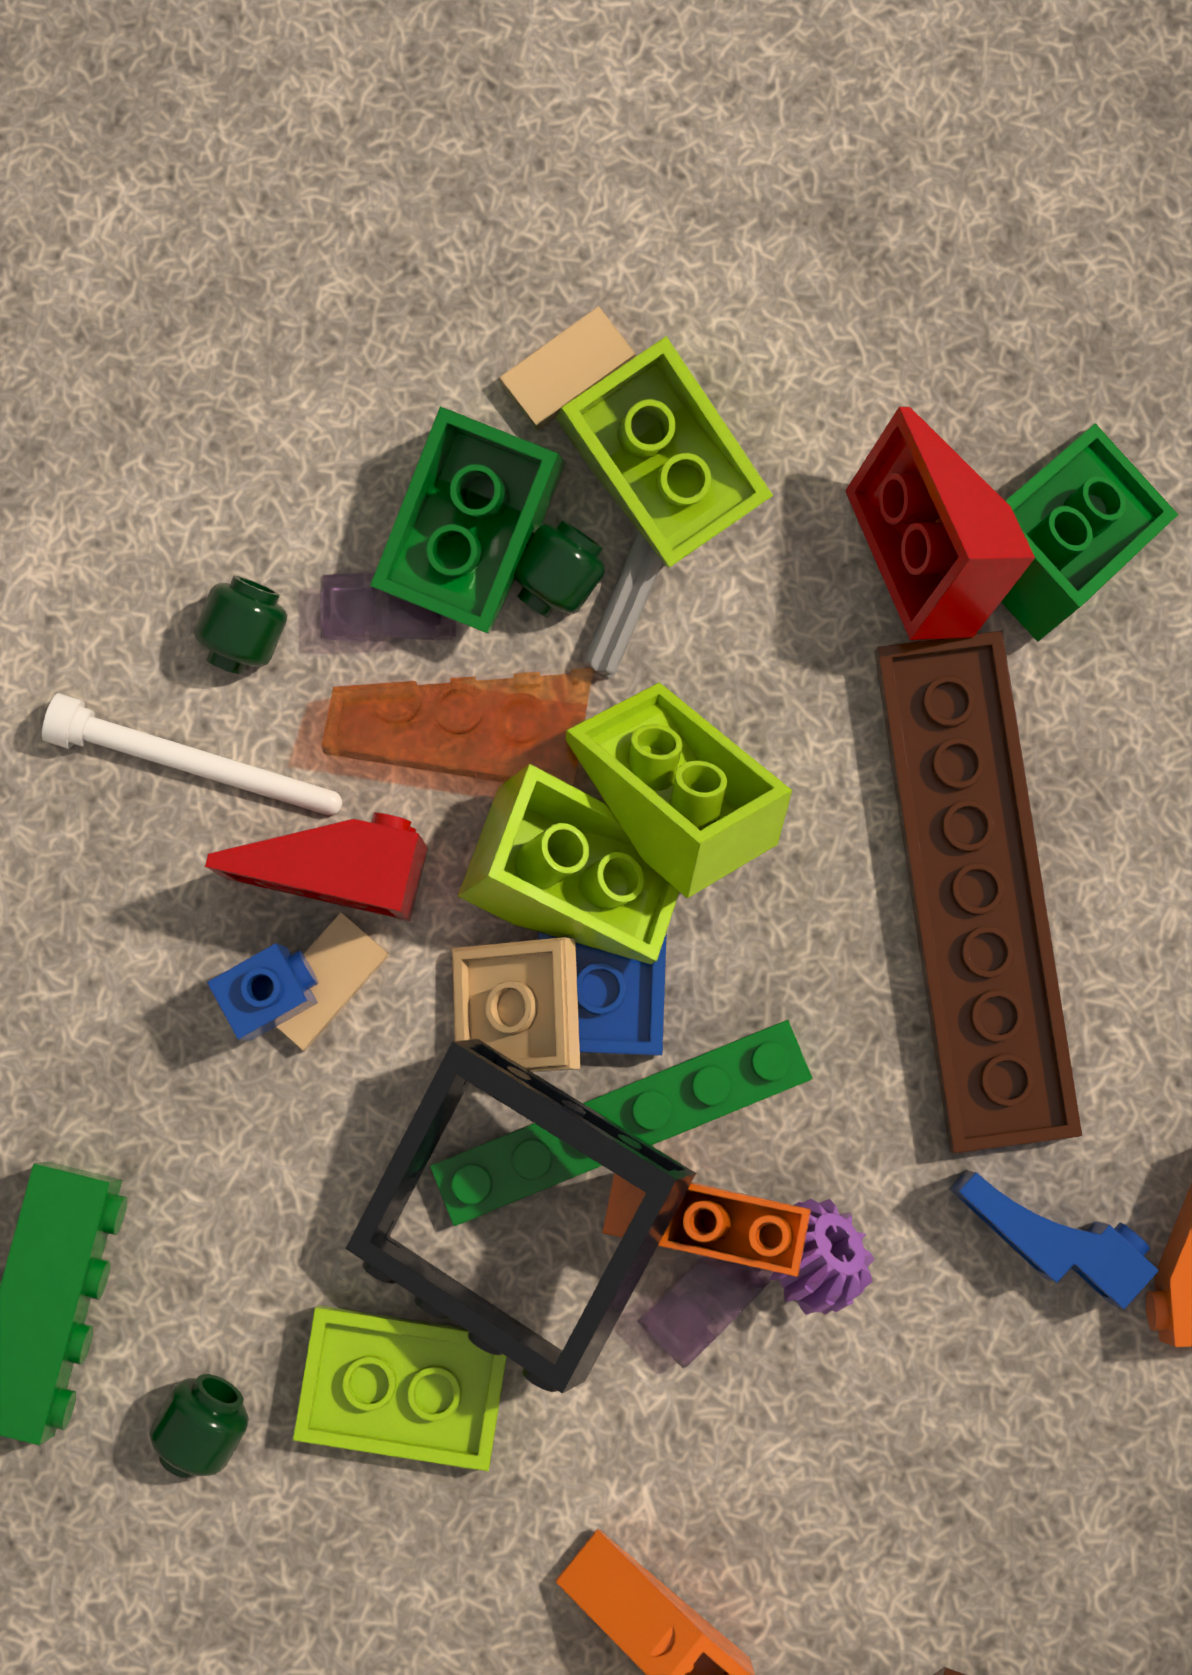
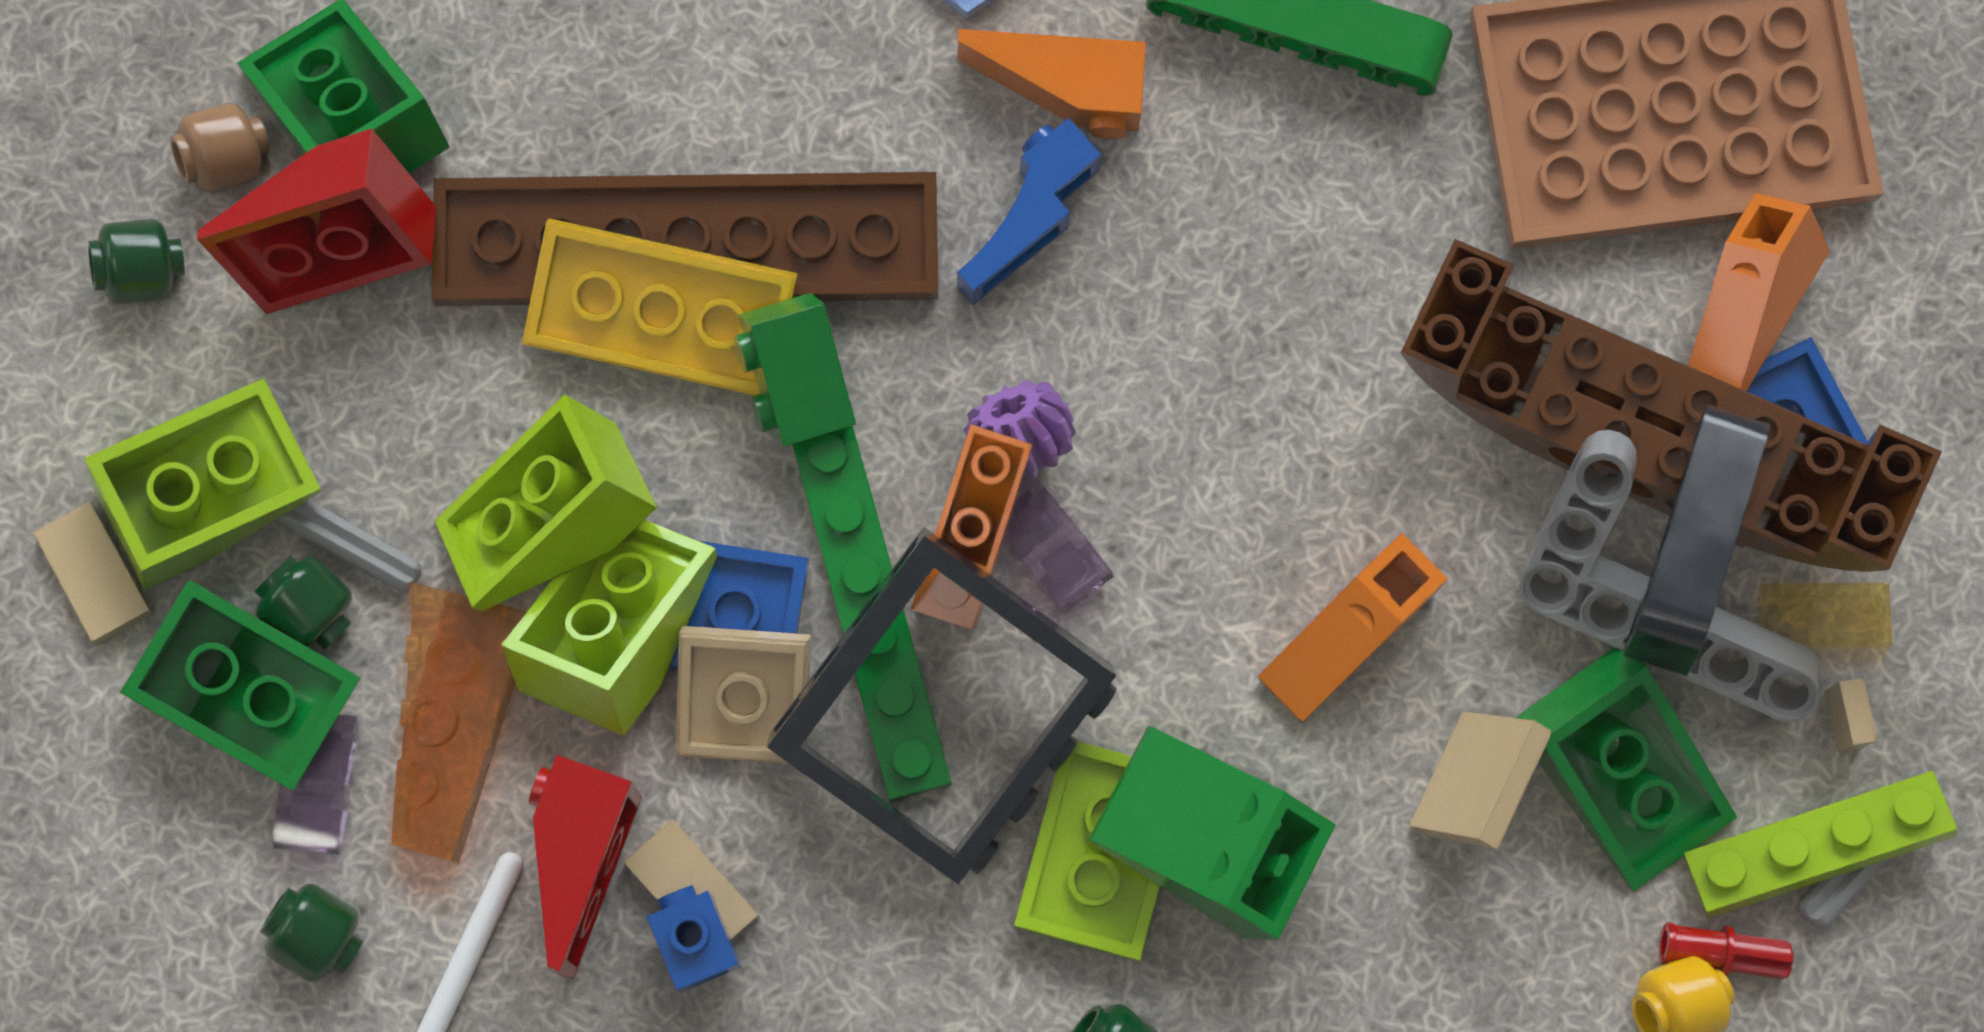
camera: 85 degrees left, 5 degrees down
(420, 1507) = (1212, 835): none -> green slope
(850, 1019) = (794, 370): none -> green brick
(877, 356) = (135, 261): none -> dark green head
(898, 873) = (647, 304): none -> yellow tile
(1004, 418) = (219, 147): none -> medium nougat head

